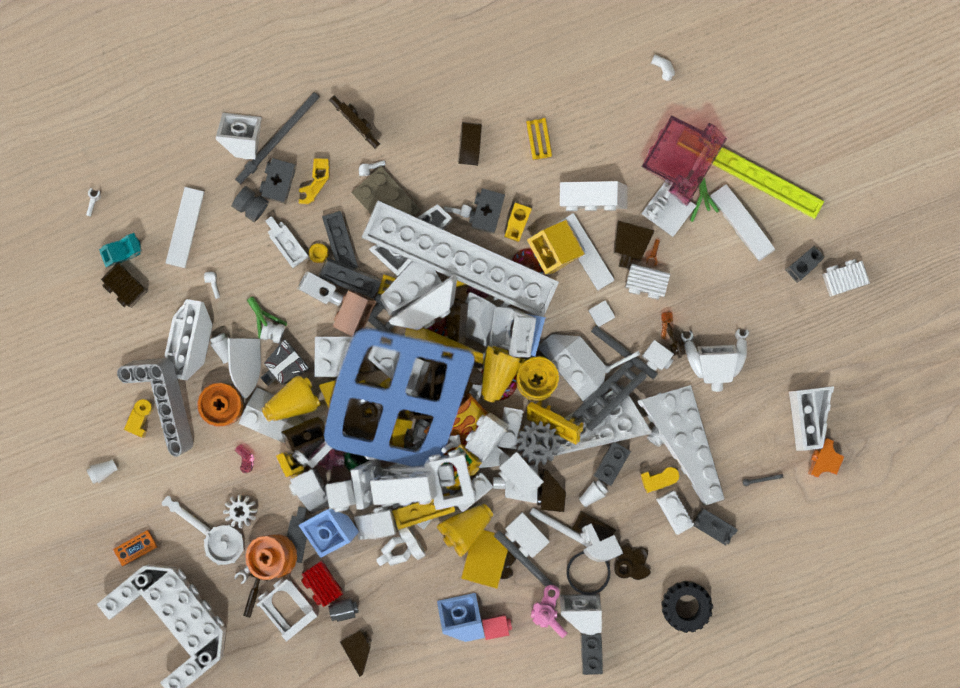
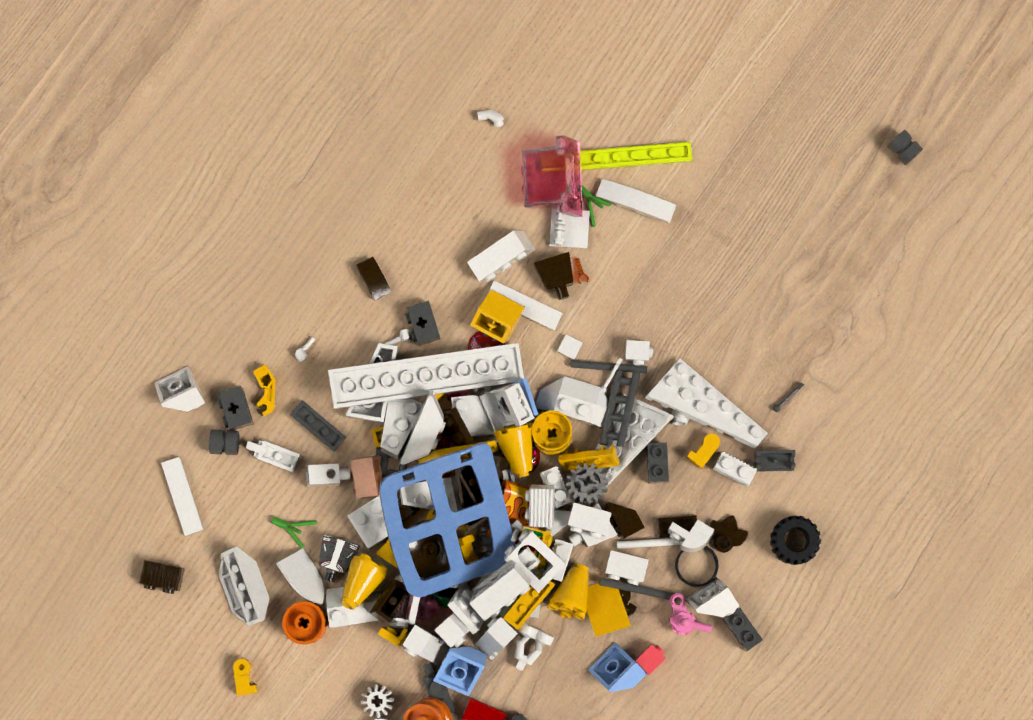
camera: 30 degrees left, 5 degrees down
(92, 201) = (91, 524): white hand -> none
(120, 250) = (141, 548): teal brick -> none
(167, 398) = (257, 645): light grey beam -> none
(210, 277) = (230, 523): white hand -> none
(220, 346) = (274, 574): white cone -> none
(247, 459) = (355, 653): clear pink arm -> none
(251, 167) = (205, 411): dark grey bar -> none
(272, 332) = (310, 535): white wheel -> none
(318, 253) = (306, 446): yellow tile -> none
(349, 278) = (345, 449): dark grey plate -> none
(360, 125) = (275, 319): dark brown plate -> none
(383, 188) = (326, 358): dark tan plate -> none
(517, 222) = (453, 316): yellow leg -> none
(536, 122) = (417, 227): yellow tile -> none
(594, 492) = (658, 497): white cone -> none
(647, 281) = (589, 297): white brick -> none
(666, 317) = (624, 316): clear orange hand -> none
(677, 347) = (648, 333): dark brown plate -> none
(717, 363) = (690, 325): white torso -> none
(805, 264) = (708, 201): dark grey leg -> none
(810, 416) = (792, 320): white wedge -> none
(825, 460) = (828, 347): orange brick -> none
(845, 278) = (748, 191): white brick -> none

